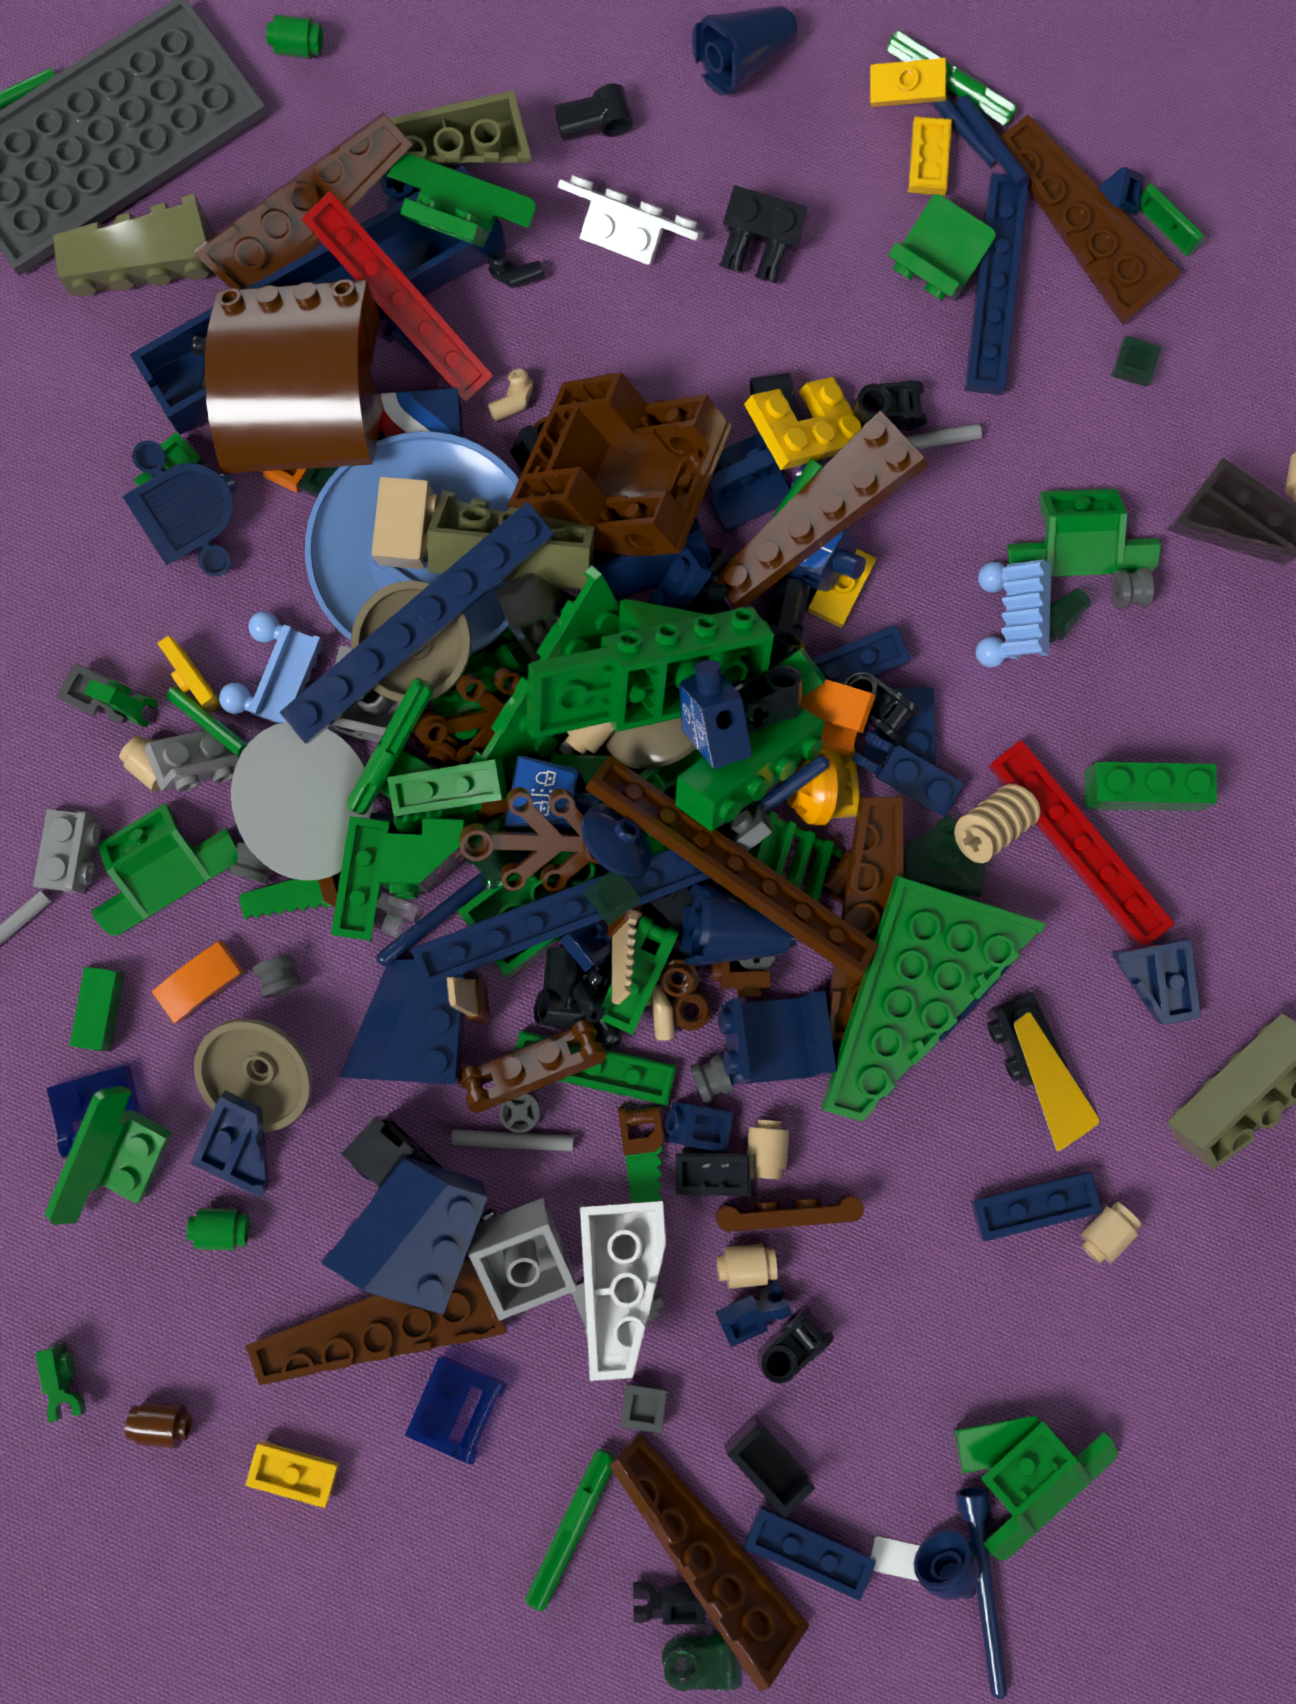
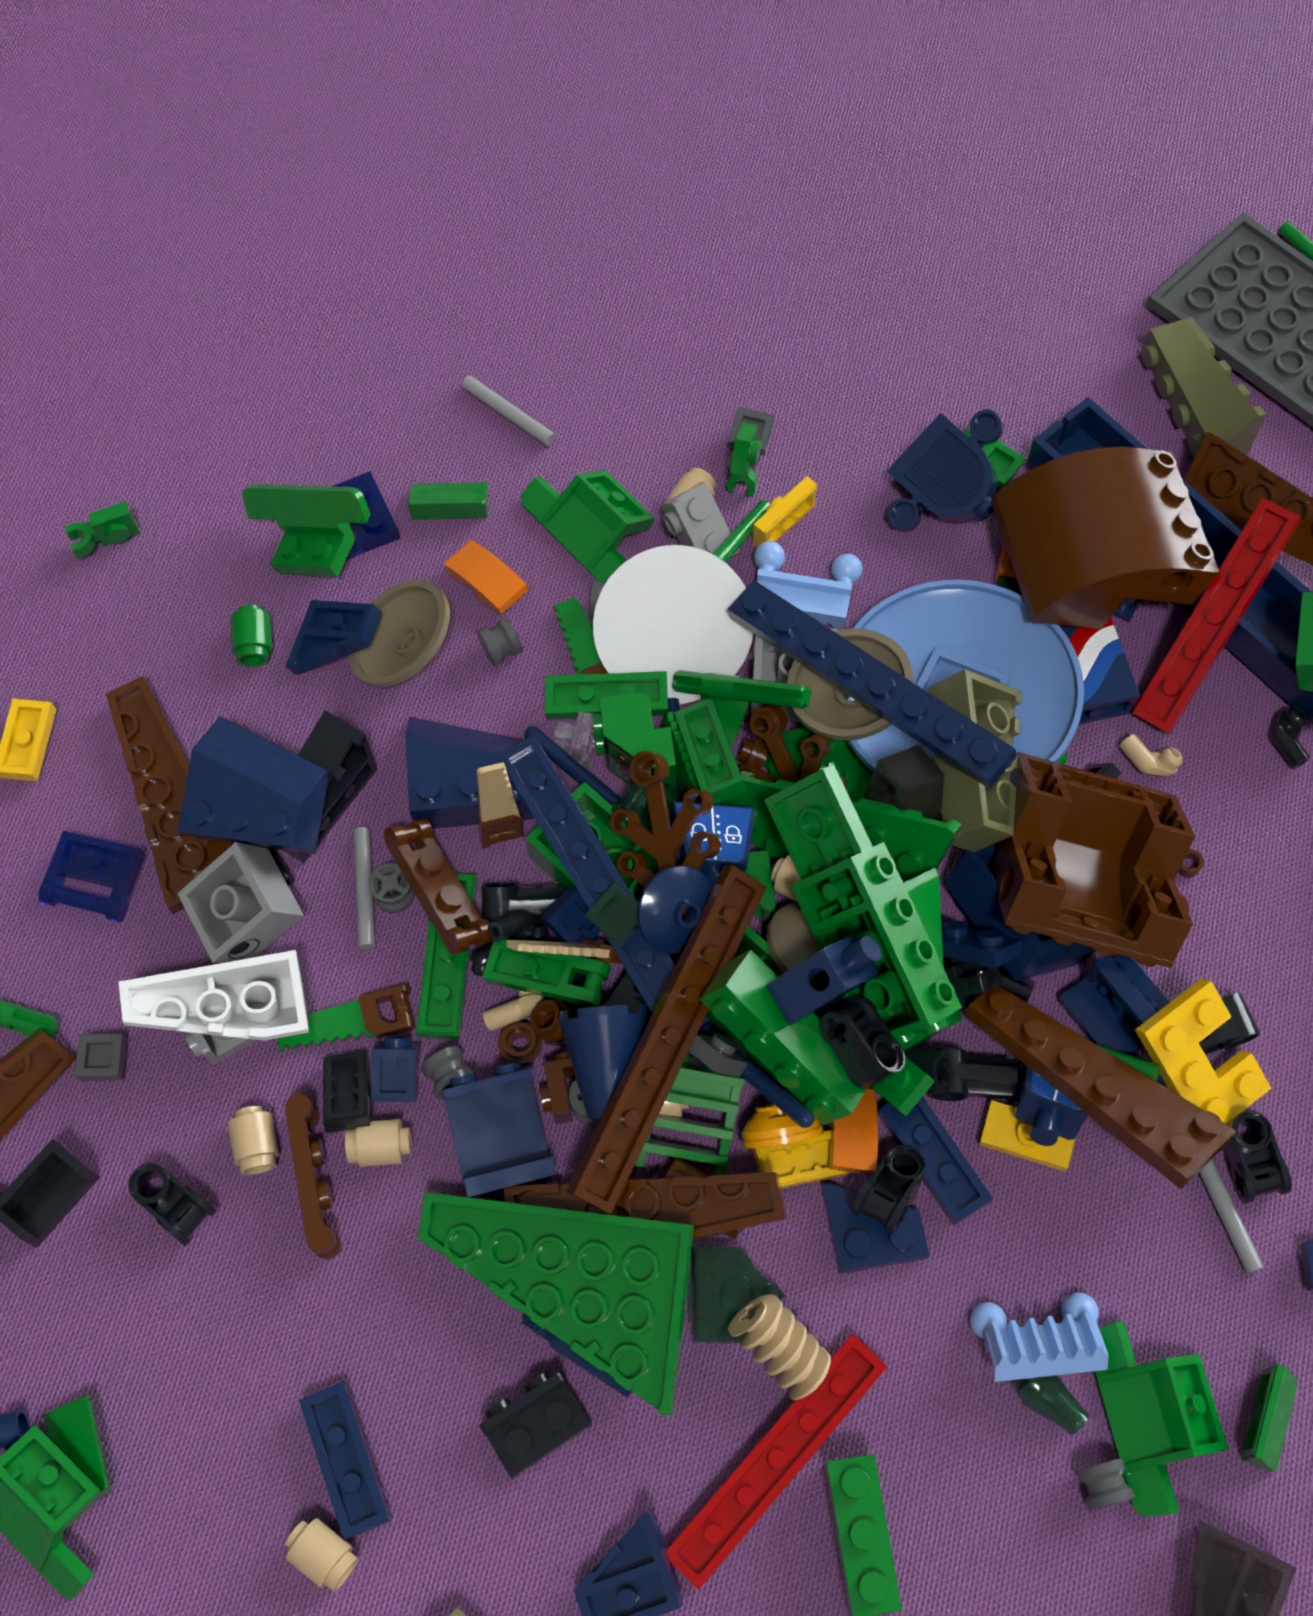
camera: 85 degrees right, 15 degrees down
(67, 851) = (594, 447): light grey bracket -> none
(158, 1425) = (66, 617): reddish brown brick -> none
(403, 522) = (980, 649): tan brick -> none
(747, 1317) = (197, 1151): dark blue plate -> none
(839, 705) = (879, 1135): orange slope -> none
(912, 775) = (820, 1241): dark blue hinge -> none
(1061, 1099) = (474, 1467): yellow sticker -> none
(1095, 453) = (1270, 1418): none -> green slope

